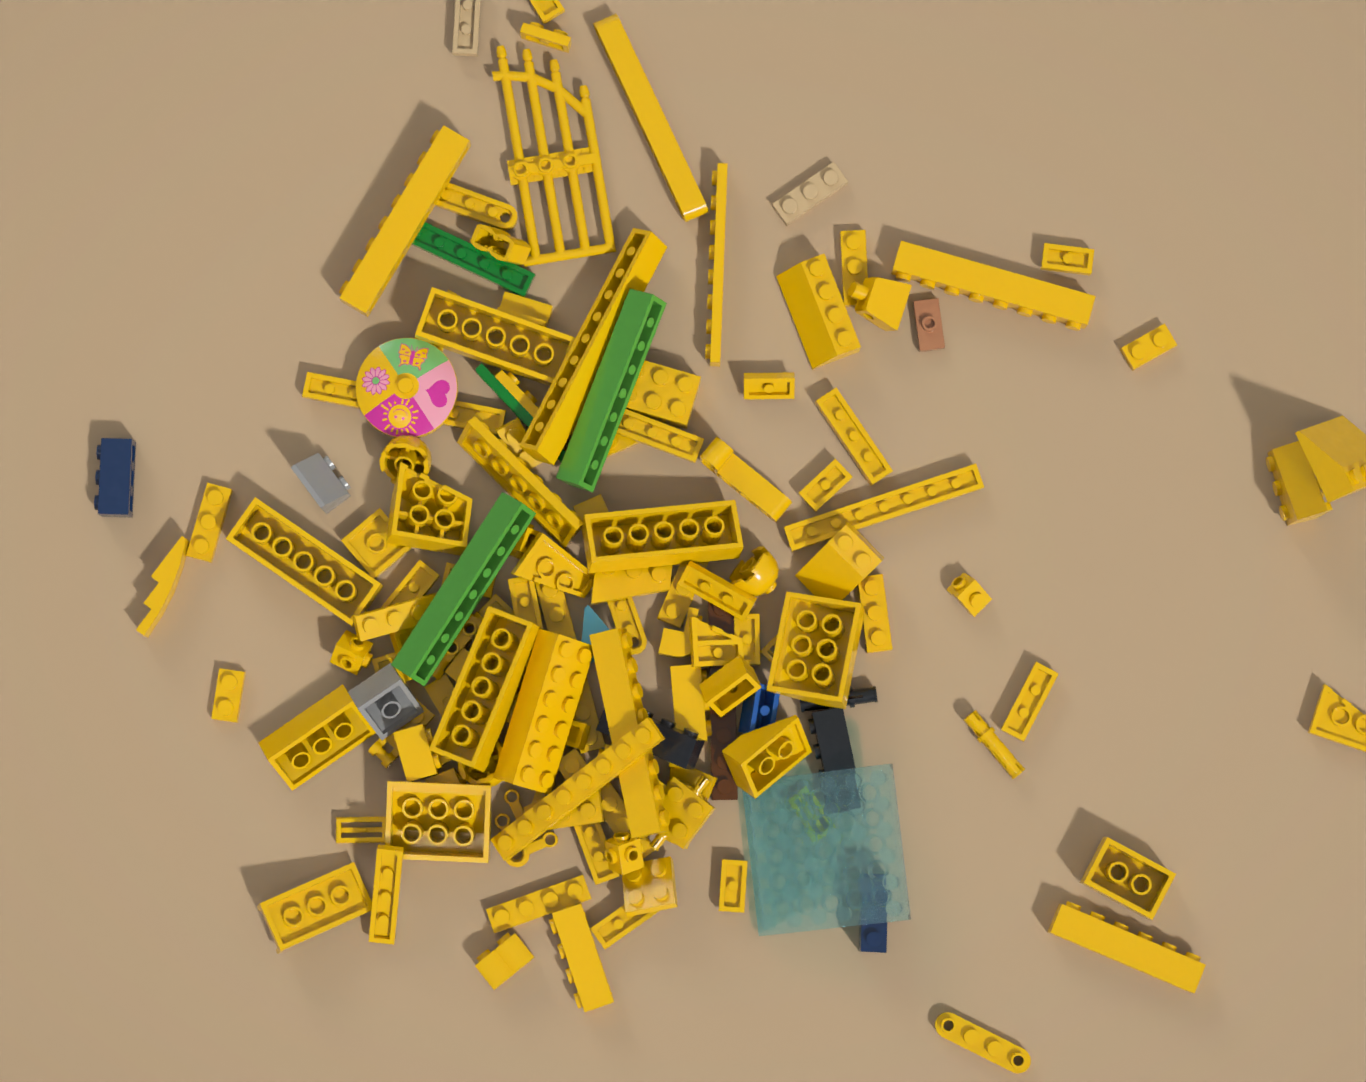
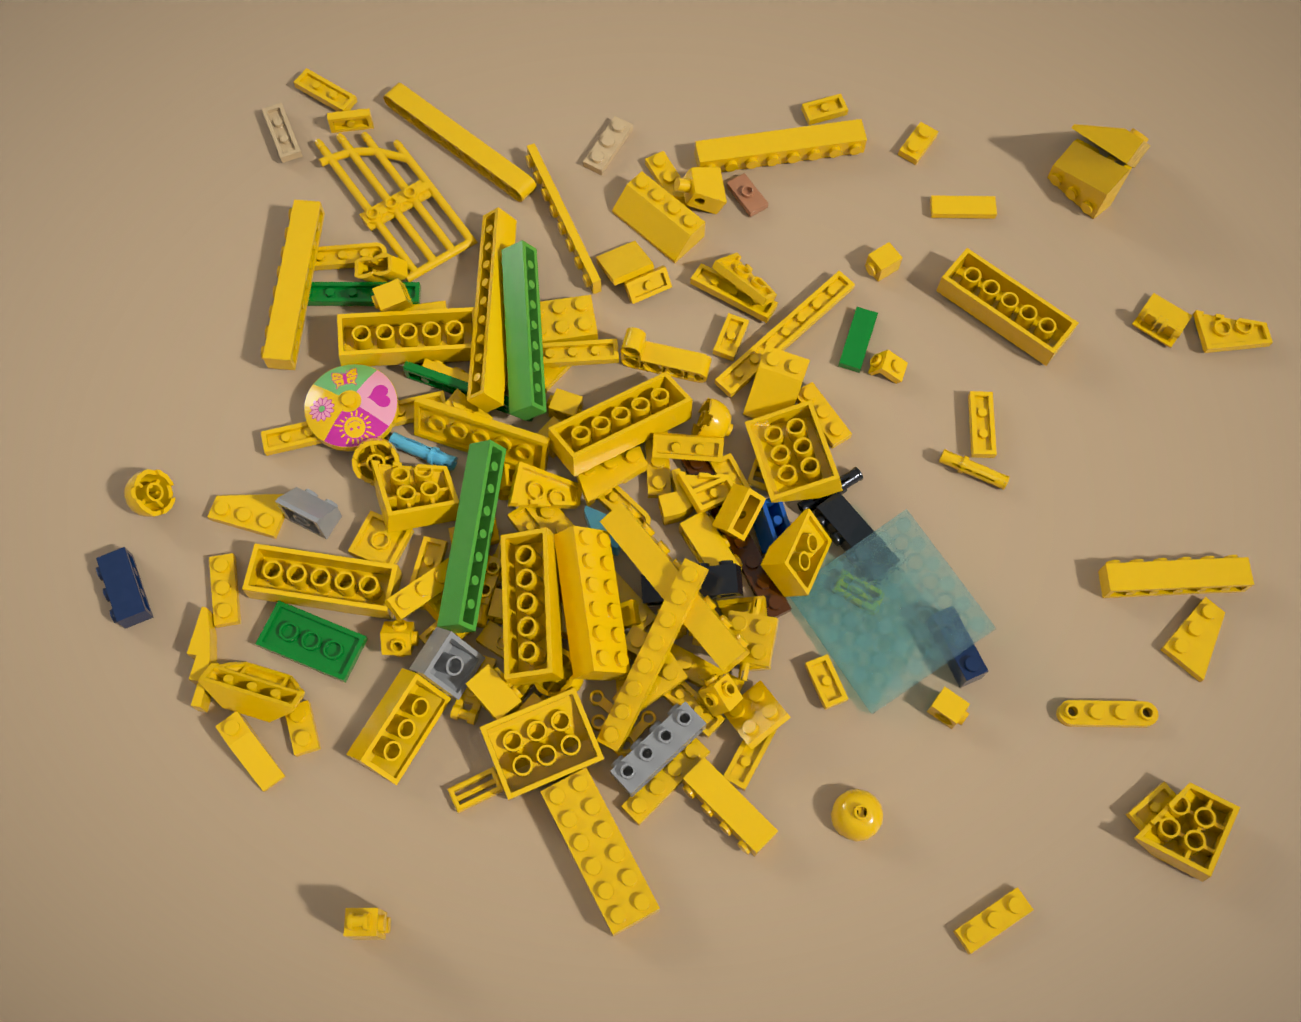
camera: 25 degrees left, 15 degrees down
(173, 696) = (250, 750): none -> yellow slope
(175, 392) = (149, 493): none -> yellow cylinder
(199, 639) = (252, 689): none -> yellow wedge
(214, 907) = (366, 924): none -> yellow brick
(265, 452) = (249, 512): none -> yellow wing
(270, 615) = (311, 641): none -> green plate
(316, 907) = (463, 878): yellow plate -> none
(386, 894) = (524, 833): yellow plate -> none
(446, 941) = (600, 851): none -> yellow brick
(463, 473) = (430, 454): none -> medium azure pin
(496, 289) = (392, 297): none -> yellow brick
(504, 960) = (660, 844): yellow brick -> none
(542, 876) = (658, 748): none -> light grey brick
(619, 484) = (564, 404): none -> yellow brick
(702, 1010) = (857, 815): none -> yellow cylinder
(756, 349) = (625, 263): none -> yellow tile
(834, 966) = (949, 708): none -> yellow brick
(867, 424) = (743, 280): none -> yellow wing
(956, 548) = (858, 339): none -> green tile
(1028, 474) = (883, 261): none -> yellow brick
(1111, 1014) = (1195, 639): none -> yellow wing
(1126, 588) = (1006, 306): none -> yellow brick
(1127, 878) = (1143, 520): yellow brick -> none
(1153, 447) = (963, 207): none -> yellow tile
(1286, 676) = (1162, 320): none -> yellow hinge

